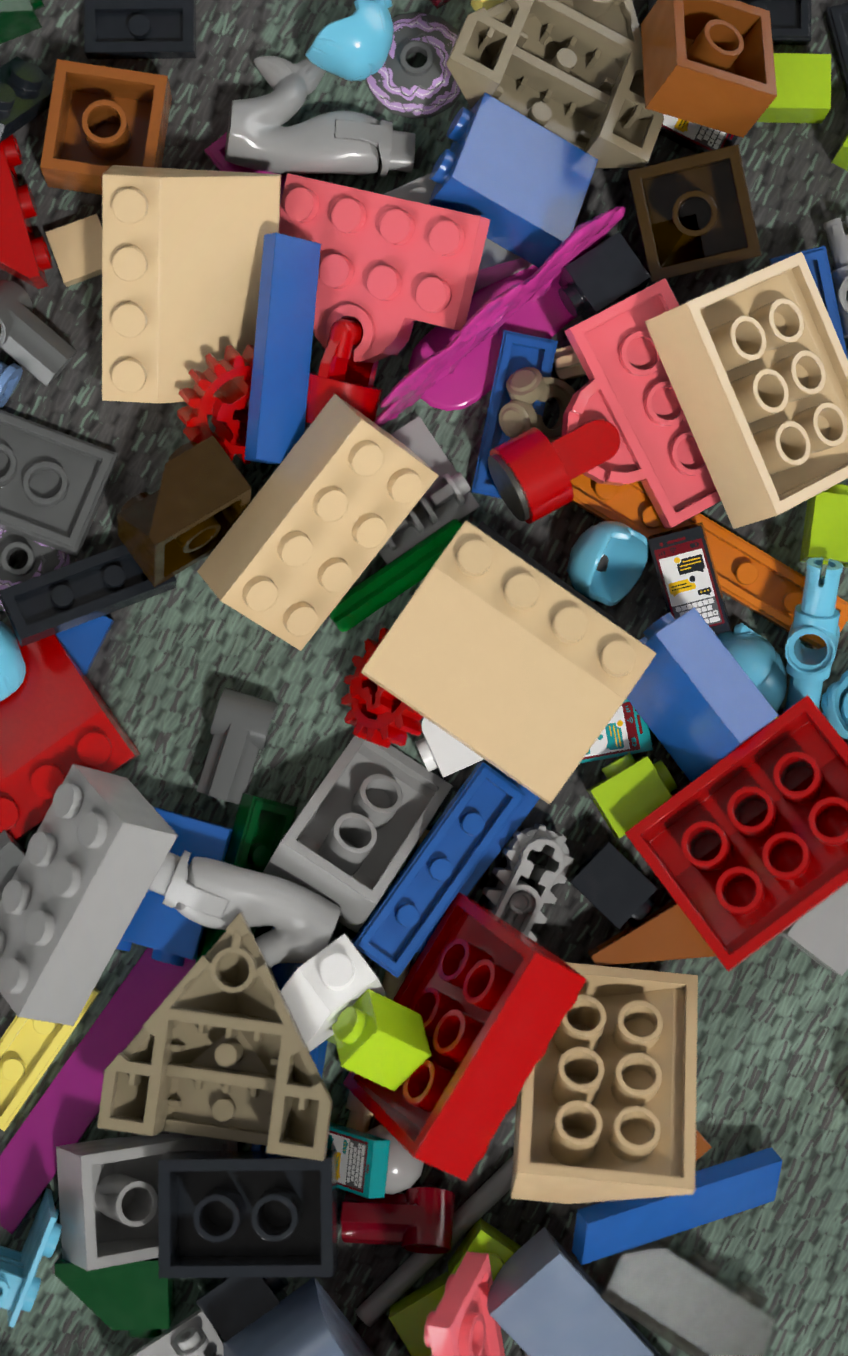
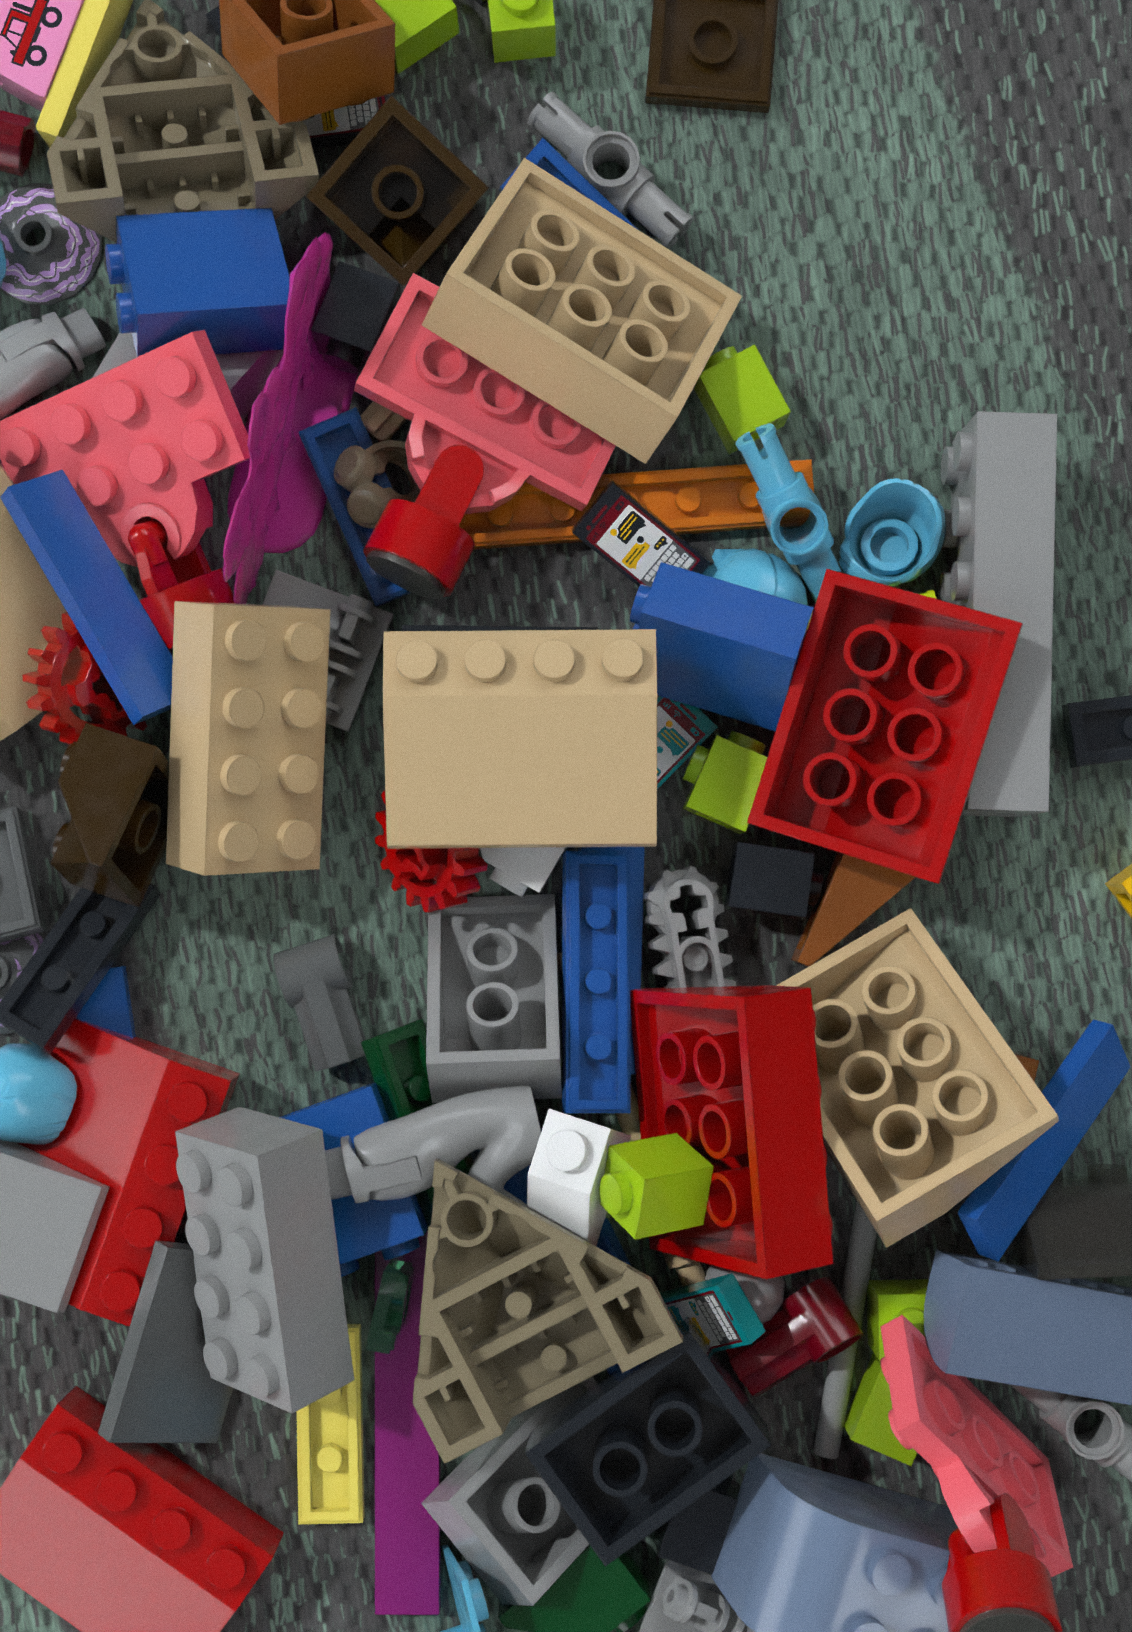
camera: 35 degrees left, 0 degrees up
(135, 993) = (391, 1306): none -> clear green tile
(393, 578) = (357, 746): green axle -> none
(626, 555) = (563, 561): medium azure hair -> none

